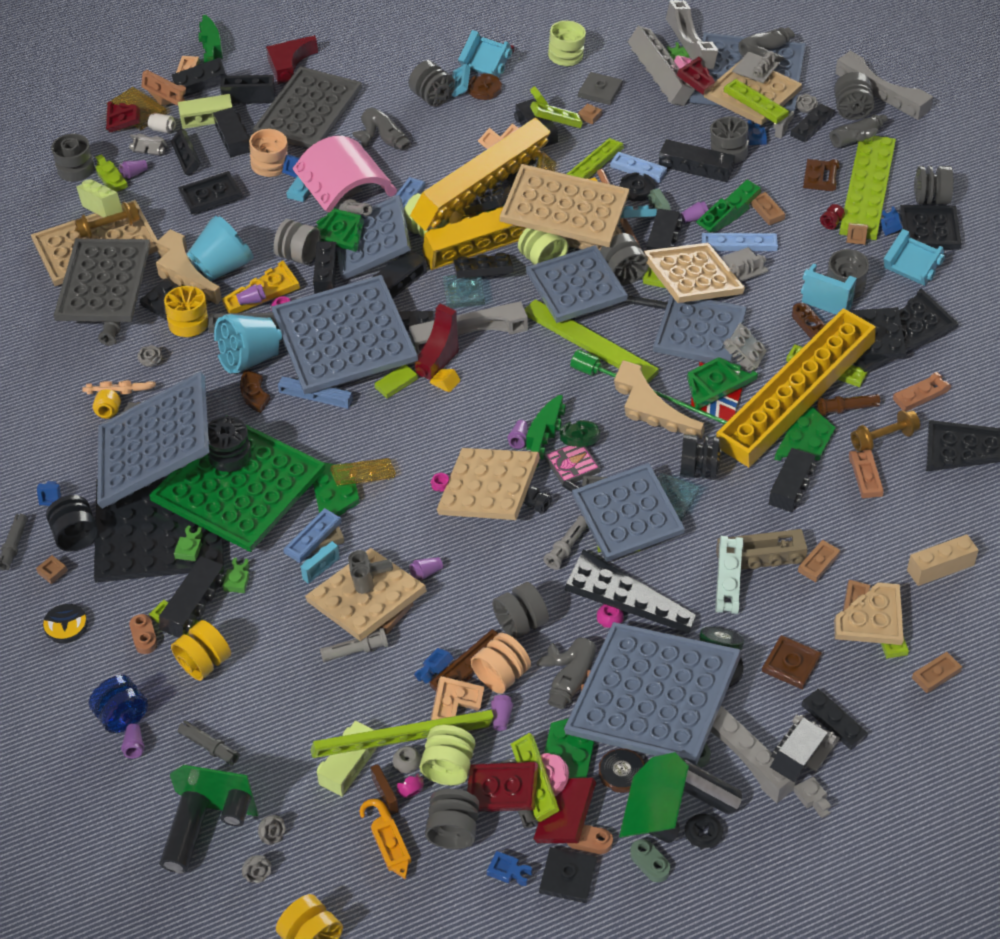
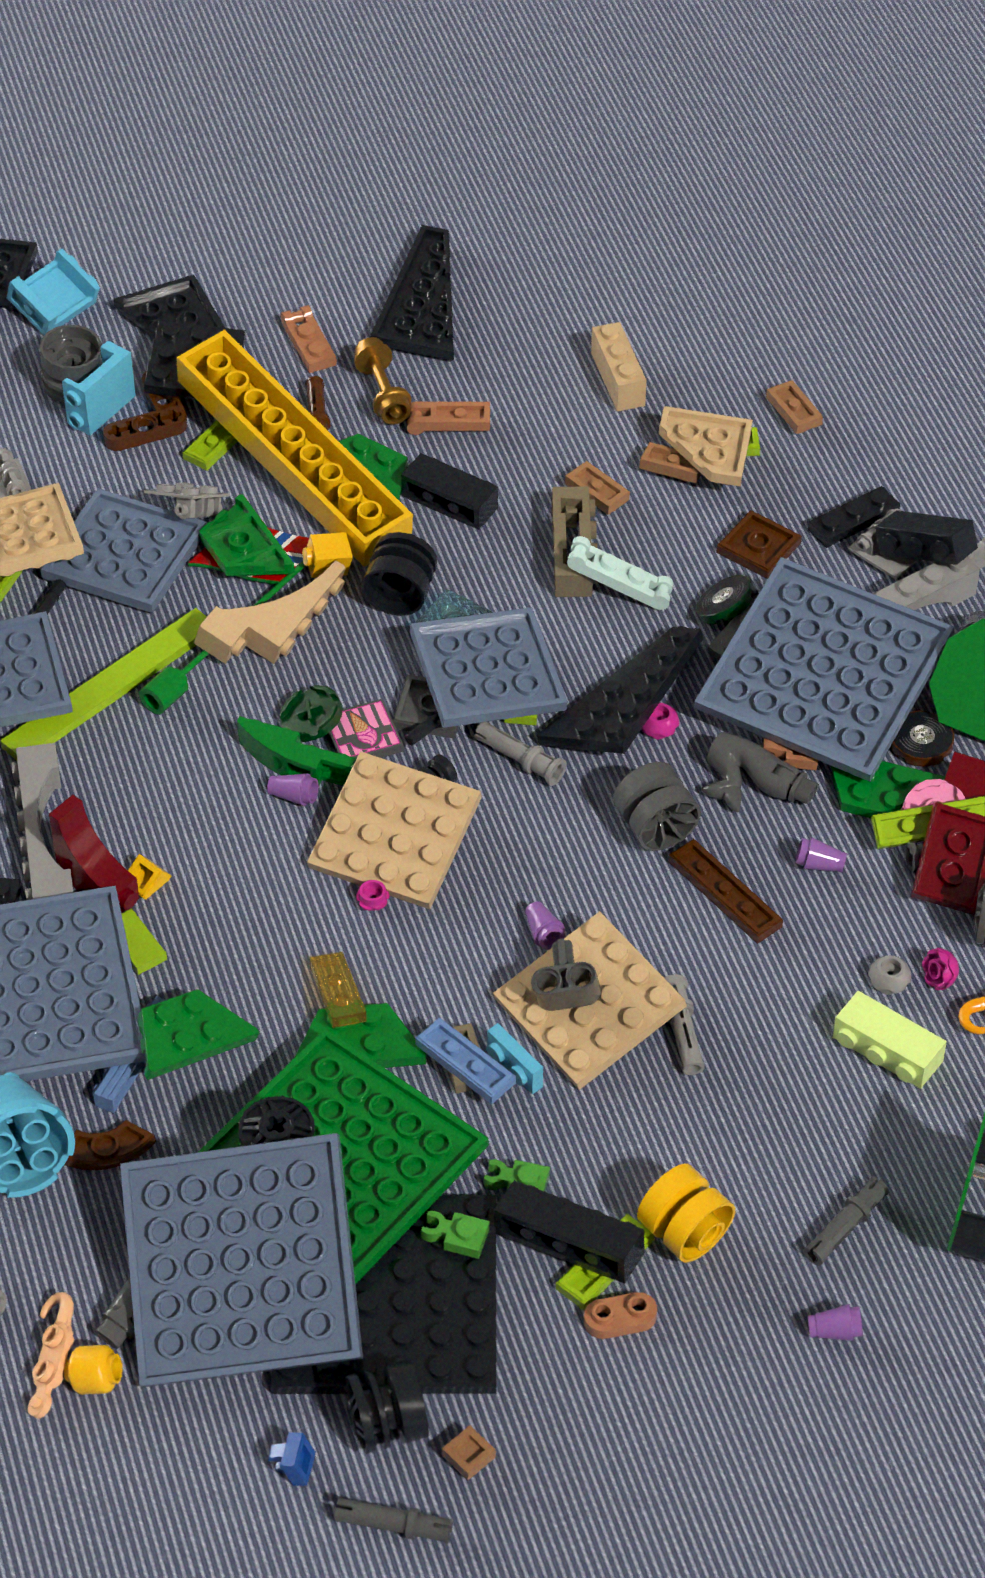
camera: 85 degrees left, 0 degrees up
(65, 623) = (584, 1432): tile -> none
(118, 703) = (782, 1328): clear blue wheel -> none
(321, 405) = (189, 1031): none -> green wing
(384, 789) = (943, 999): reddish brown tile -> none
(396, 734) = (870, 960): lime tile -> none
(433, 664) = (726, 925): blue plate -> none
(447, 755) = (903, 911): yellowish green wheel -> none
(455, 693) = (789, 906): light nougat plate -> none
(500, 663) = (748, 837): light nougat wheel -> none
(713, 420) = (324, 550): none -> yellow brick

